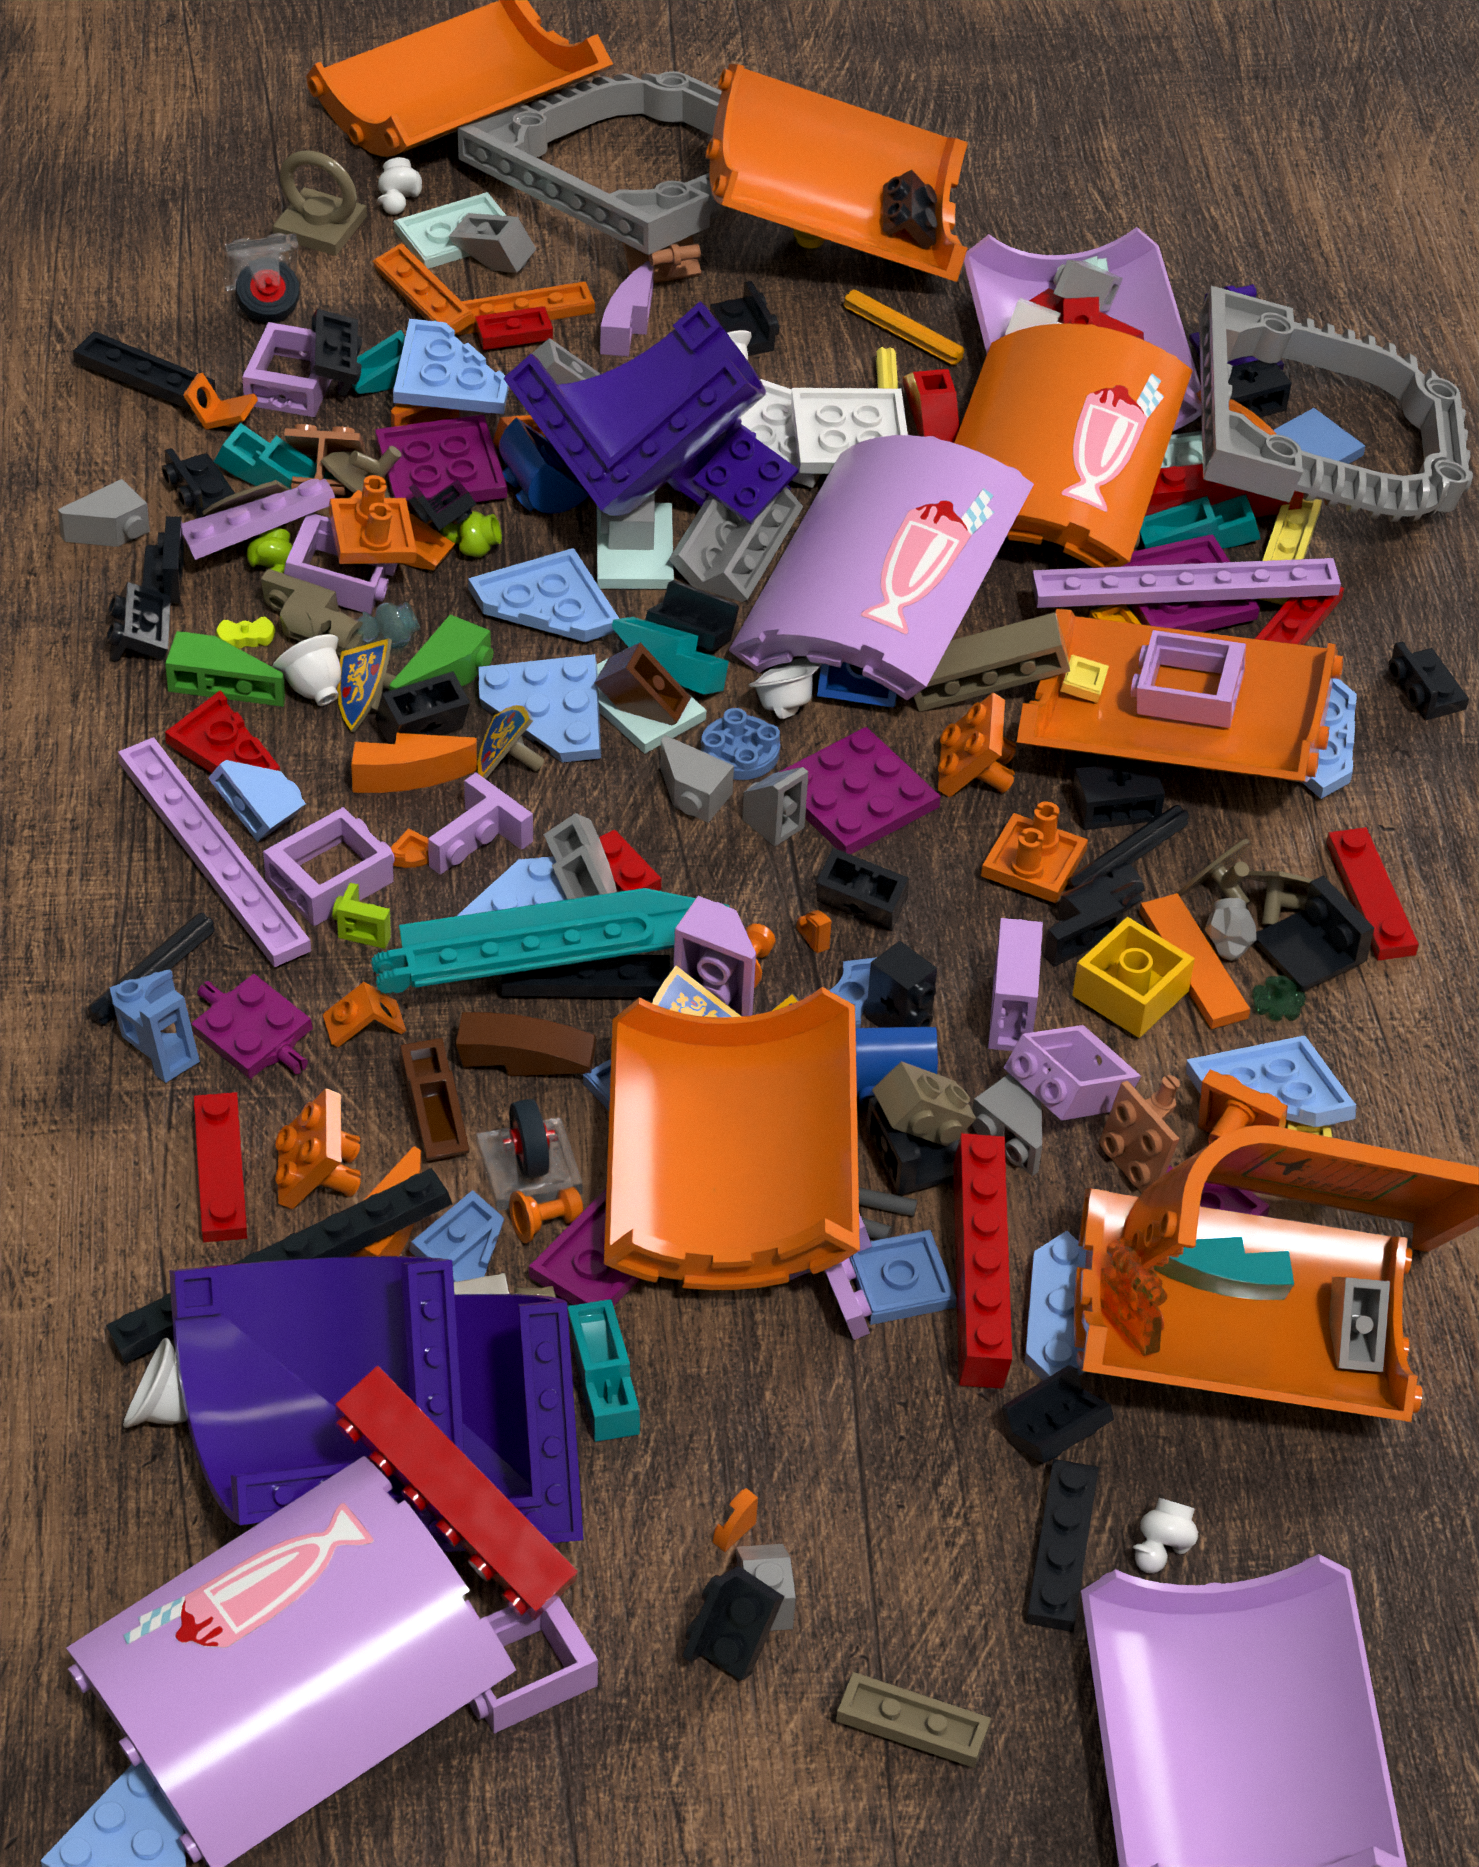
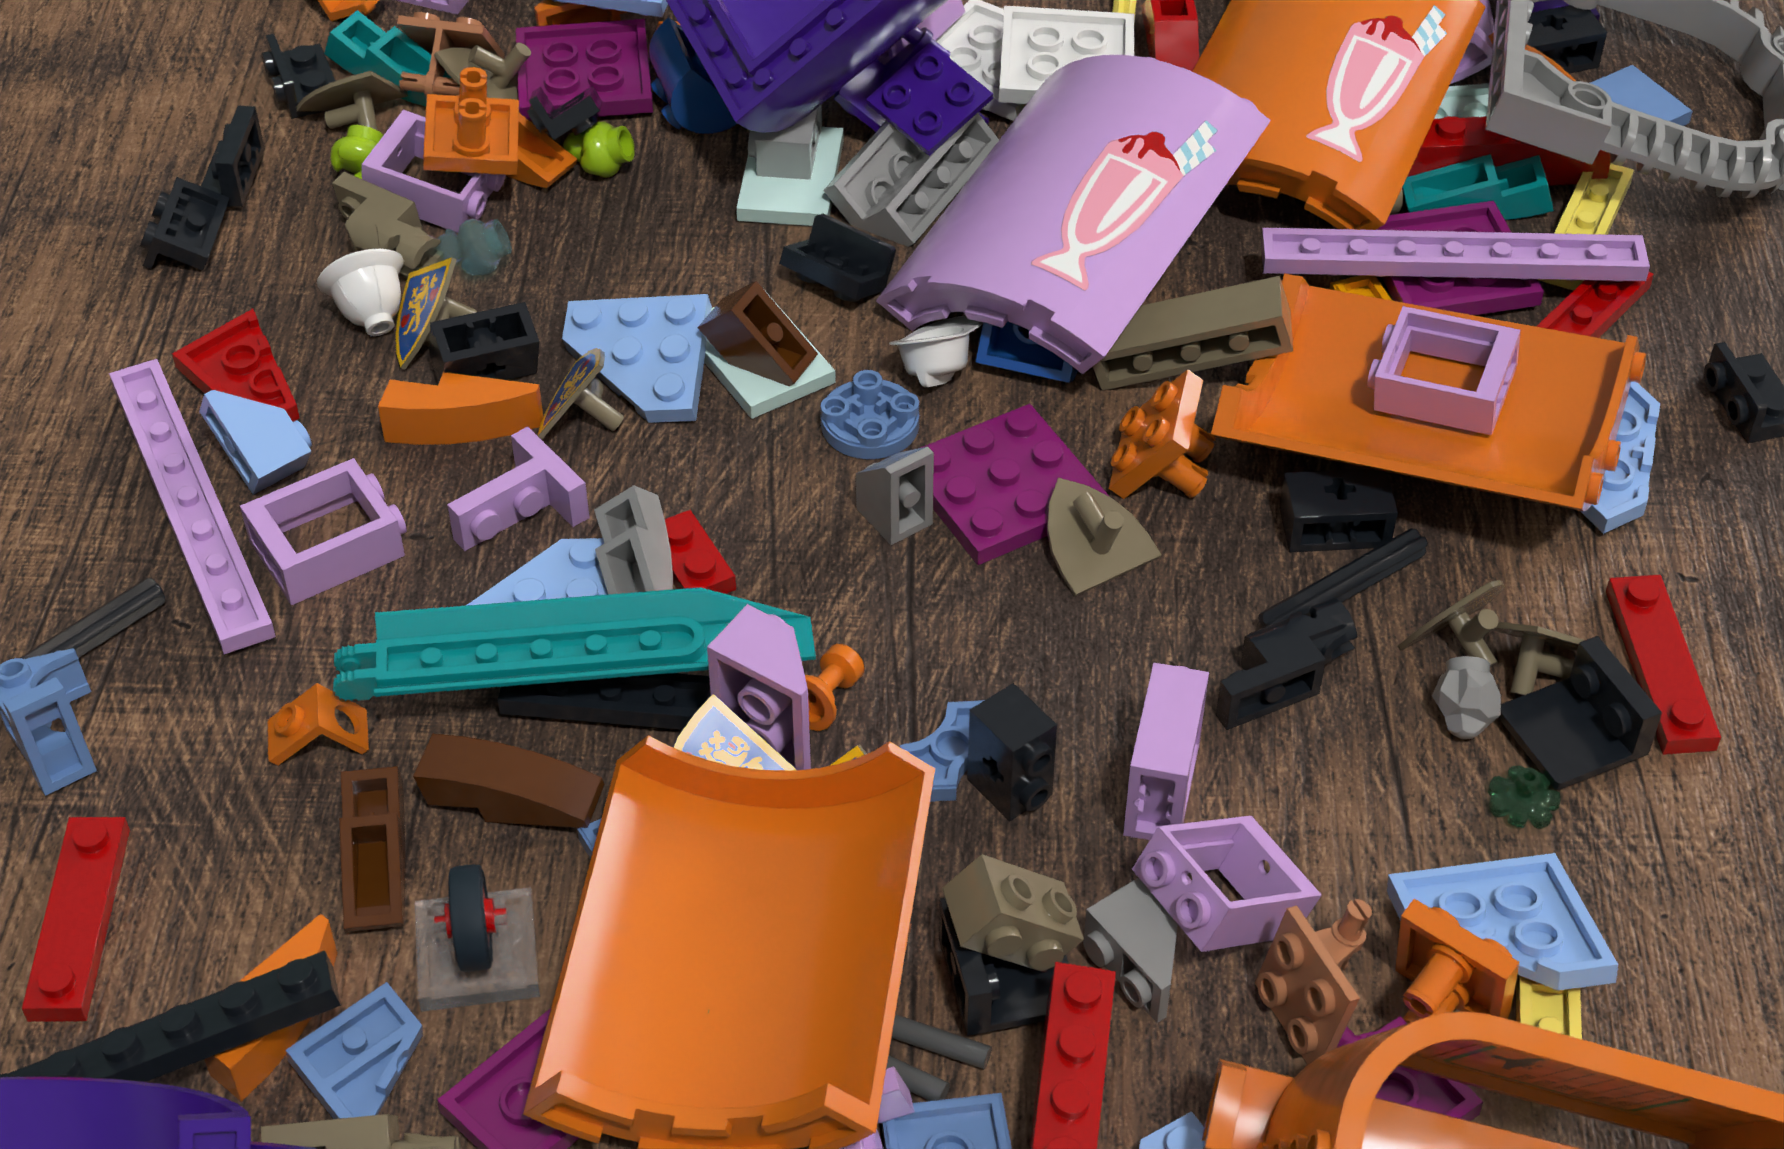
camera: 10 degrees right, 0 degrees up
(105, 517) = (180, 105): light grey slope -> none
(208, 664) = (245, 276): bright green slope -> none
(246, 633) = (307, 246): neon yellow piece -> none
(252, 1026) = (173, 730): magenta plate -> none
(253, 518) = (336, 116): lavender wing -> none
(313, 1150) = (185, 908): orange plate -> none
(361, 921) = (343, 602): lime bracket -> none
(410, 850) = (429, 518): orange tile -> none
(453, 647) = (541, 278): bright green slope -> none
(528, 1214) = (458, 1023): orange piece -> none
(547, 594) = (673, 224): light blue plate -> none
(676, 653) = (808, 301): teal slope -> none
(695, 779) = (805, 455): light grey slope -> none
(816, 930) = (919, 658): orange tile -> none
(862, 889) = (986, 609): black brick -> none
(884, 1048) = (964, 830): blue brick -> none
(933, 828) = (1094, 537): none -> dark tan shield
(1035, 854) = (1220, 579): orange plate -> none
(1085, 678) = (1312, 362): light yellow tile -> none
(1133, 977) = (1327, 754): yellow brick -> none
(1210, 982) = (1415, 738): orange tile -> none

